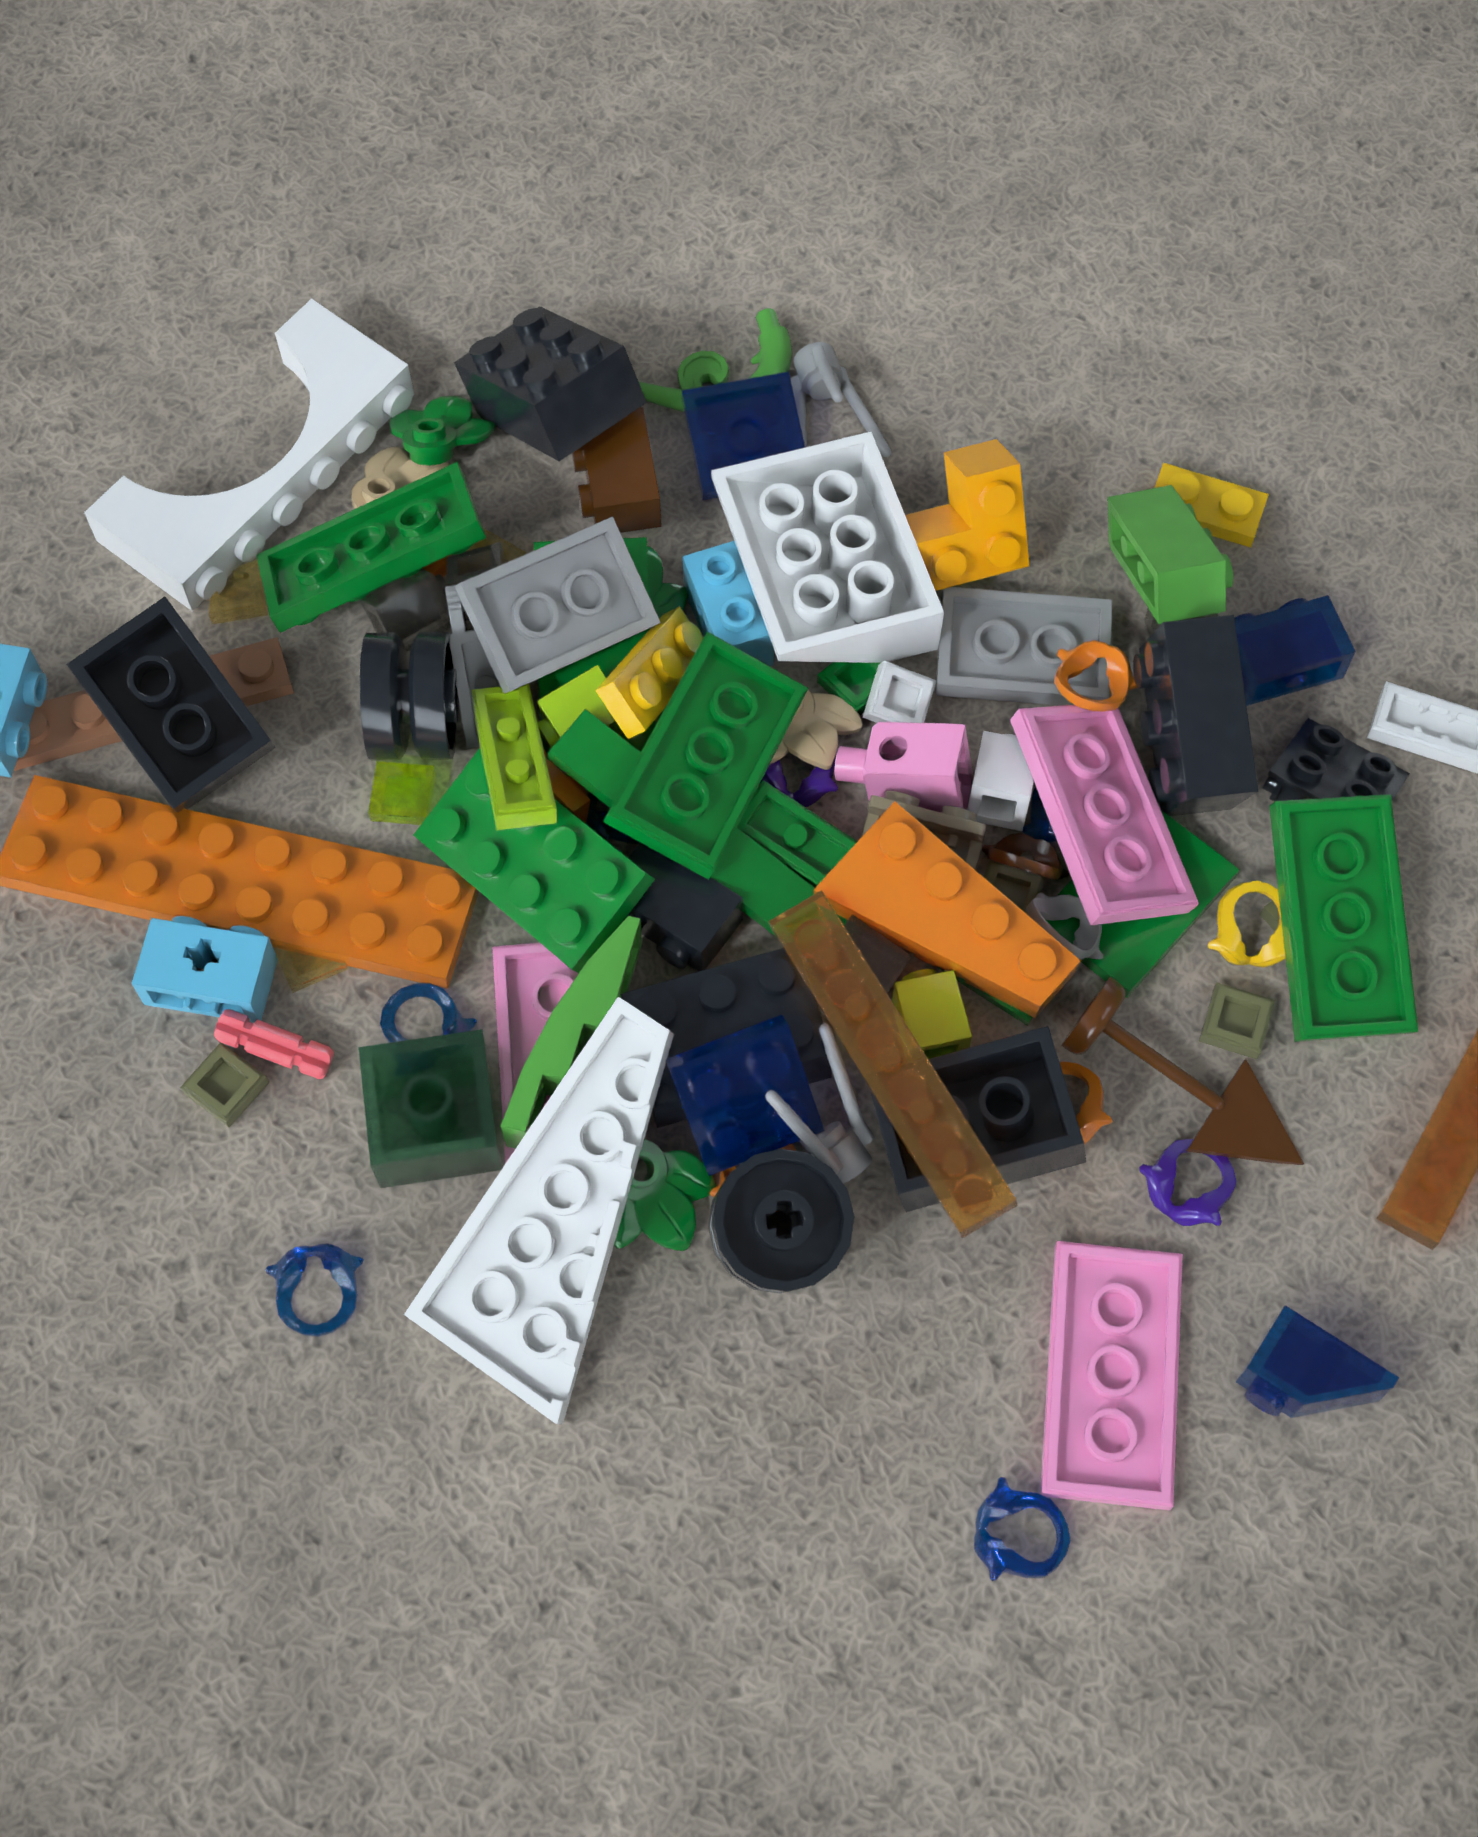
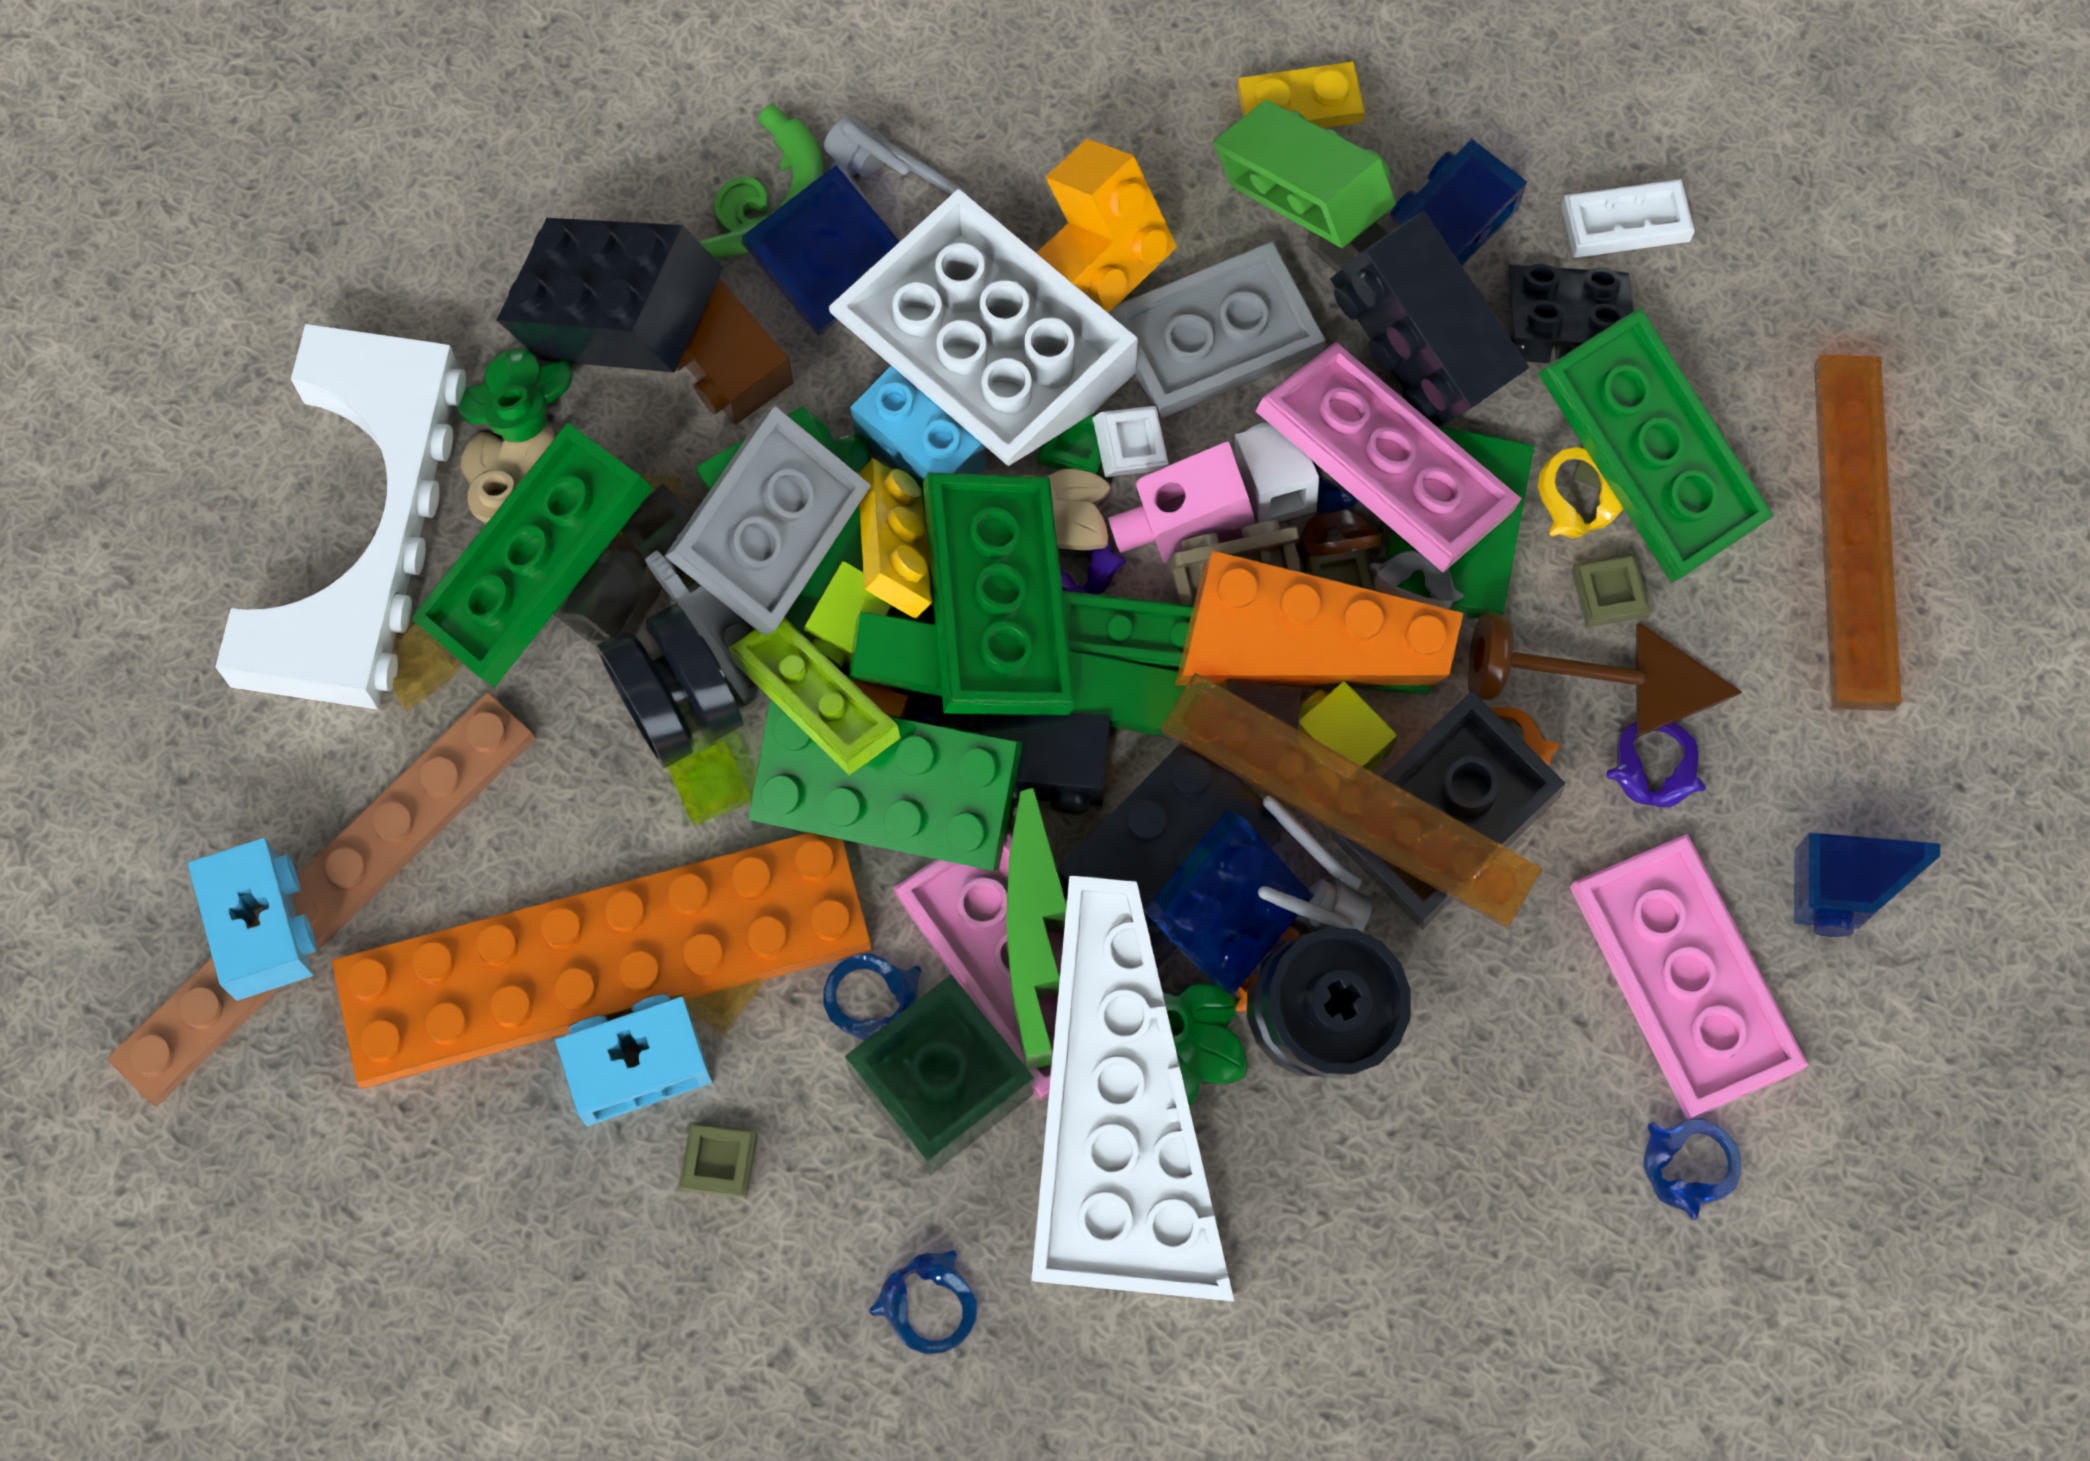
camera: 30 degrees left, 5 degrees up
(171, 705) = (443, 819): black brick -> none
(273, 1044) = (744, 1095): coral axle -> none
(1082, 657) = (1321, 310): orange piece -> none

